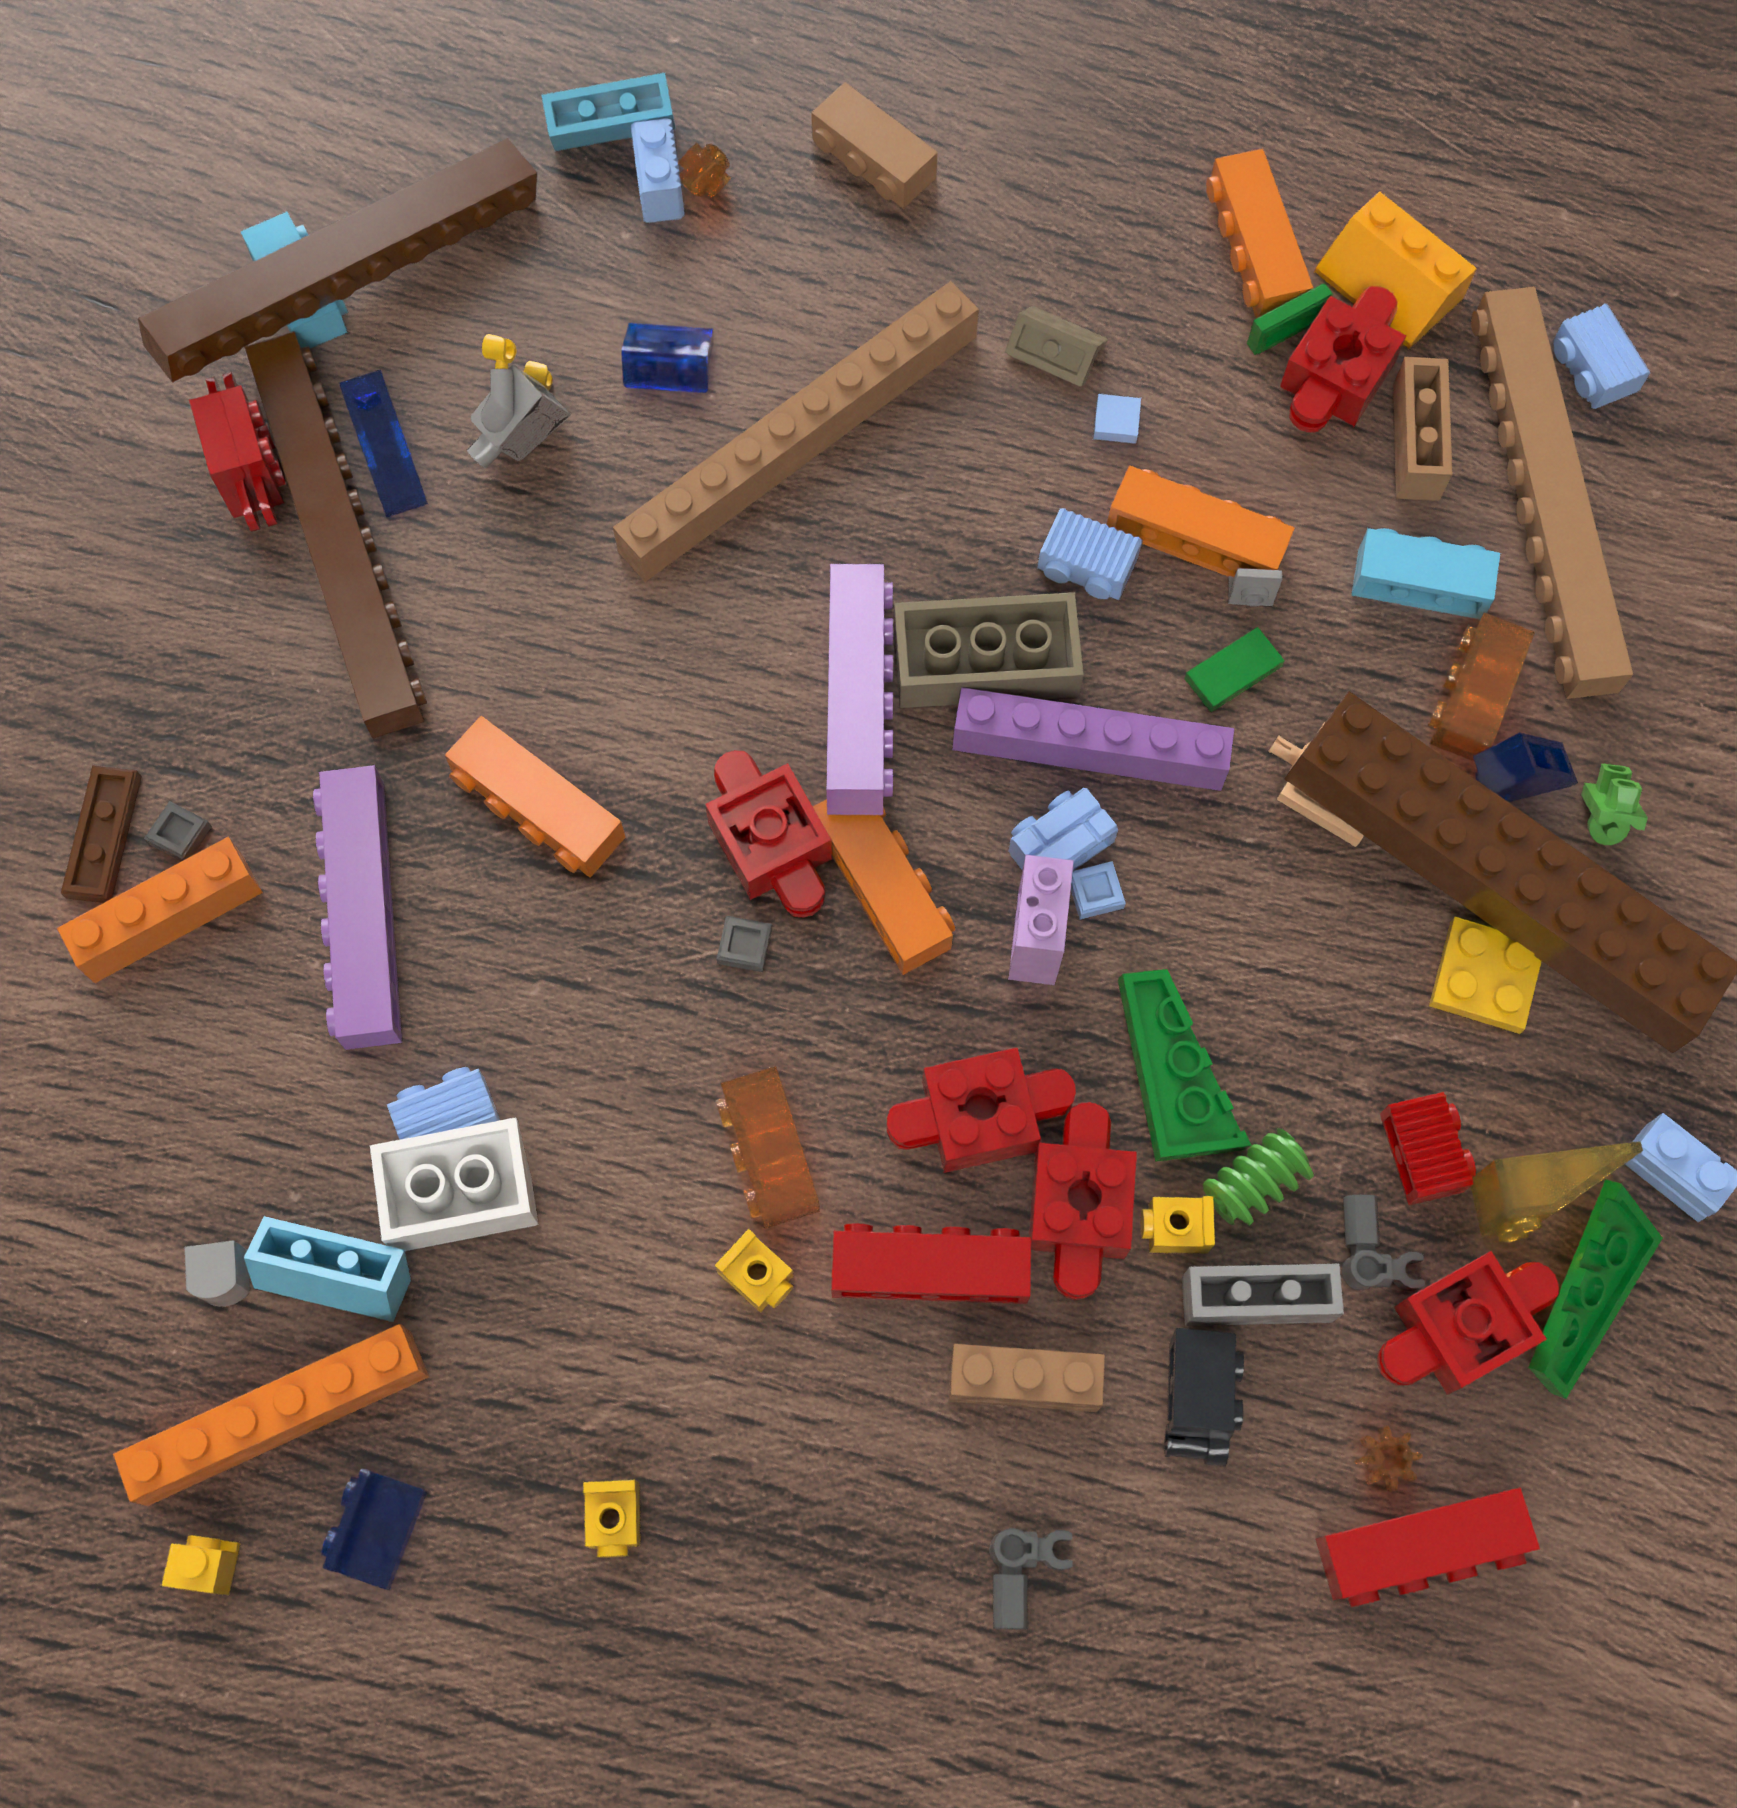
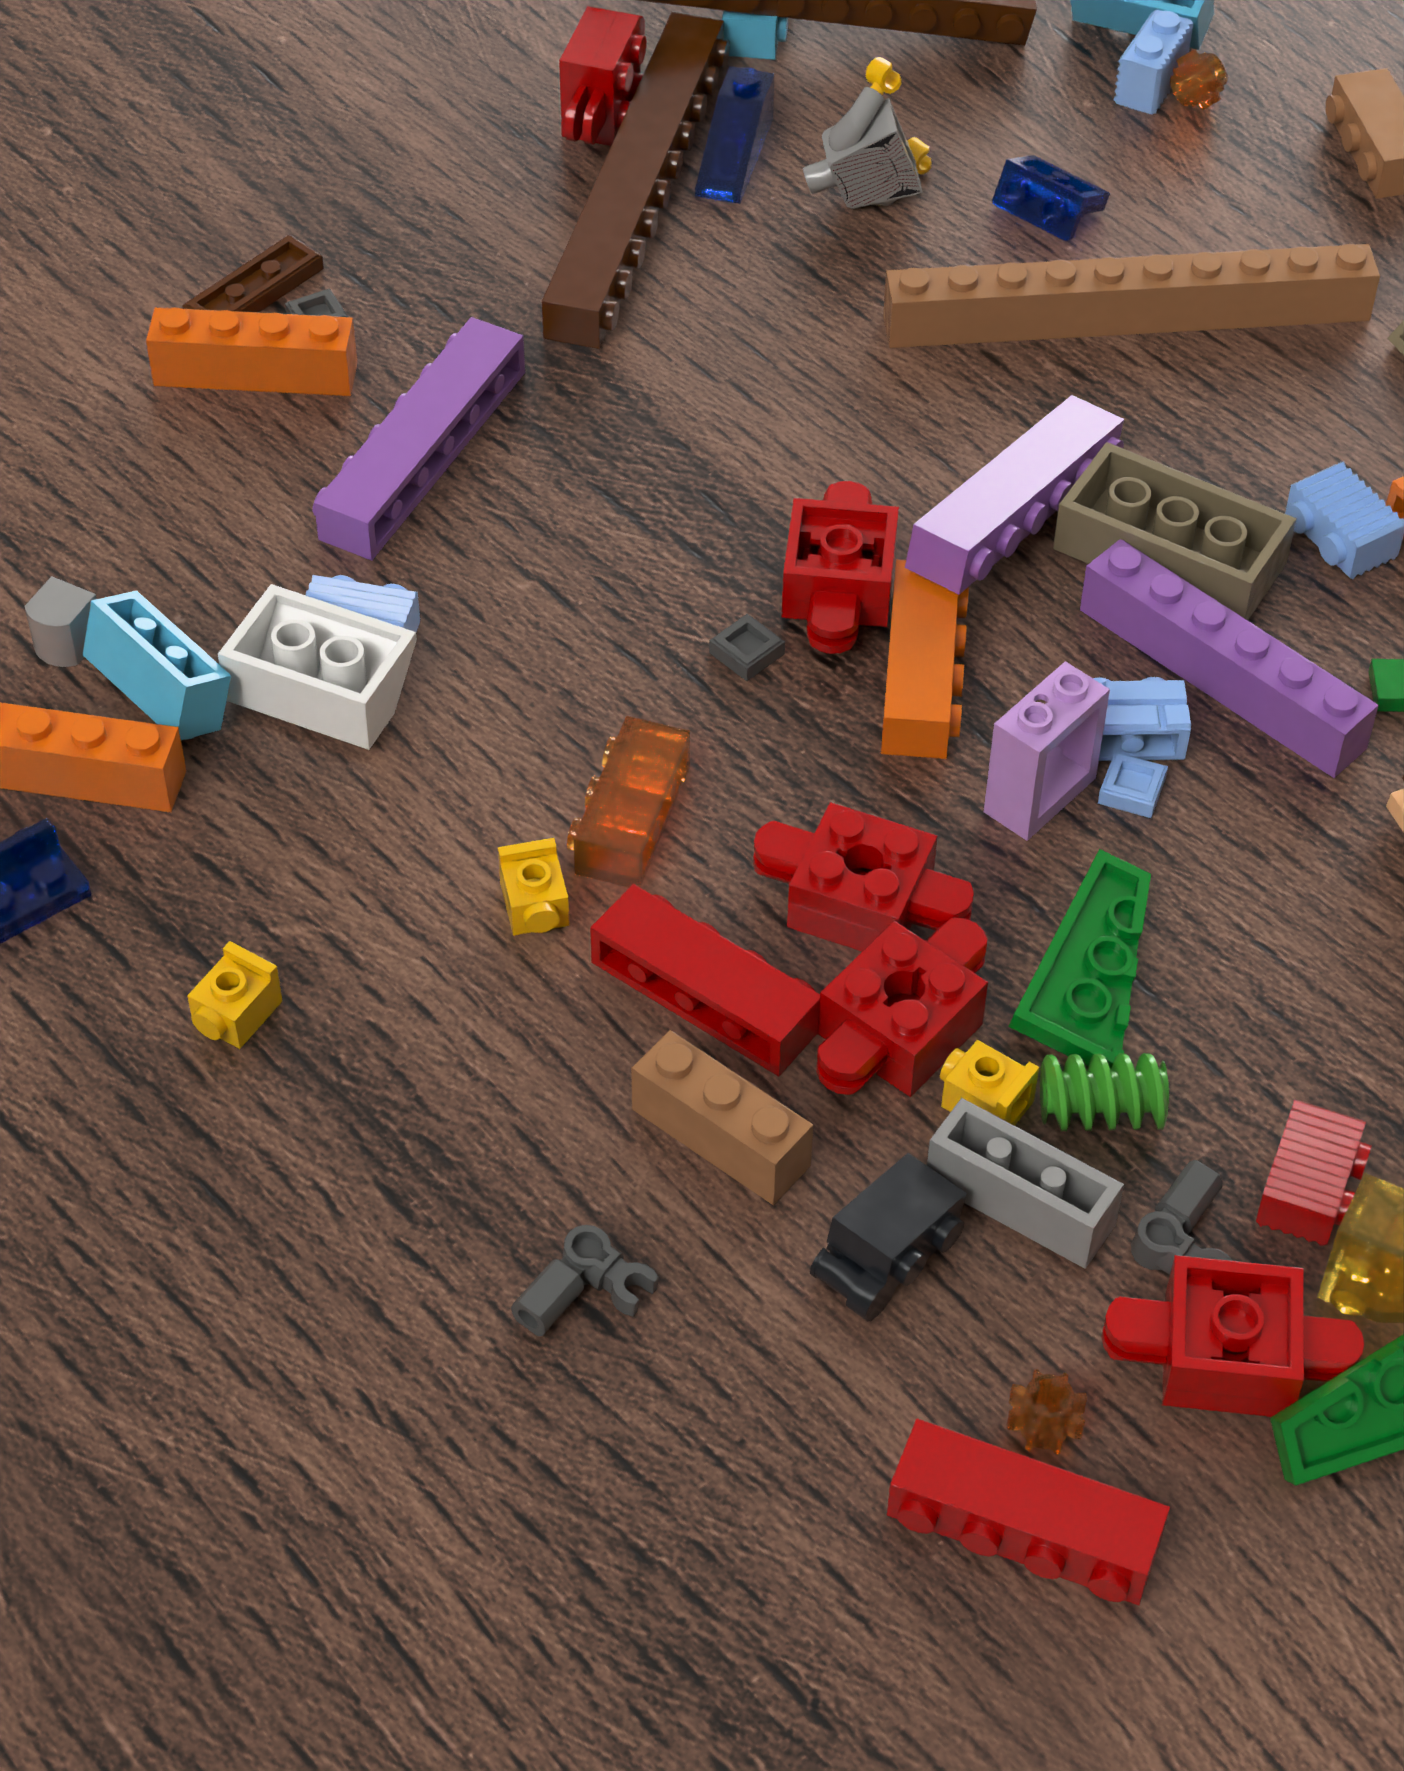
camera: 35 degrees right, 20 degrees down
(535, 797) = (646, 439): brick -> none

